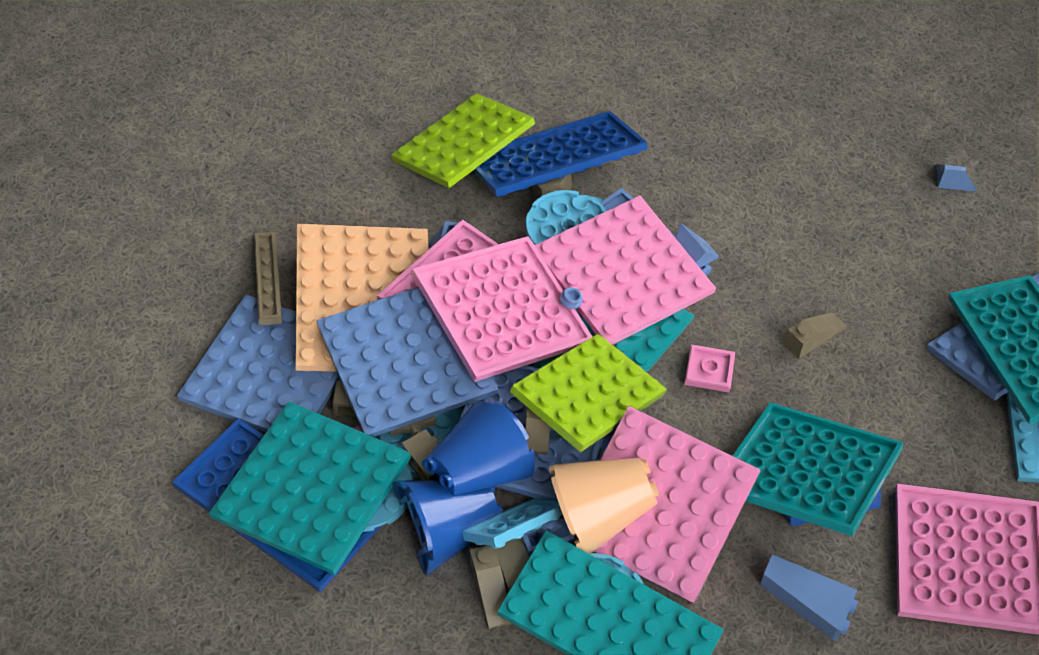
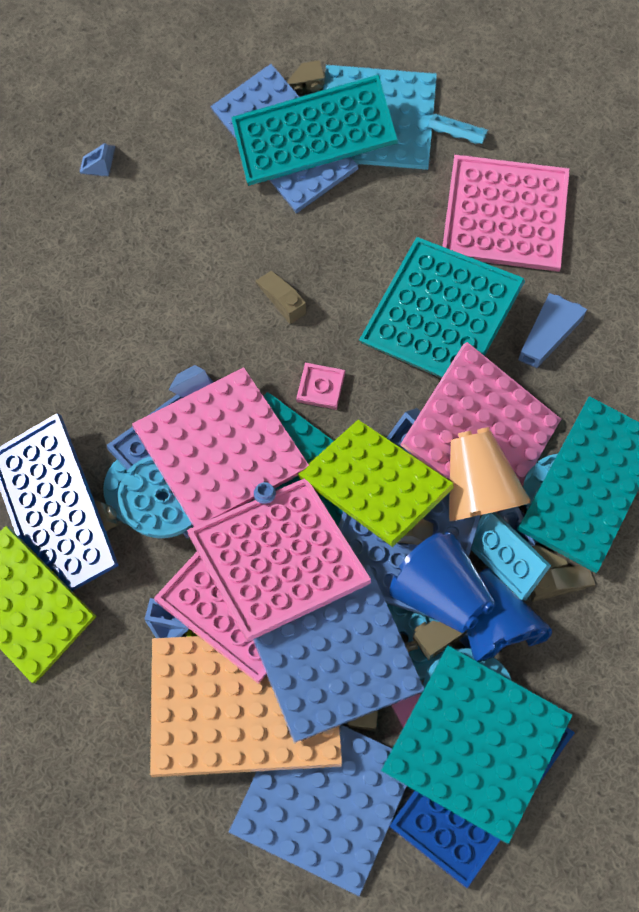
camera: 85 degrees left, 15 degrees up
(267, 278) = (208, 808): dark tan tile -> none

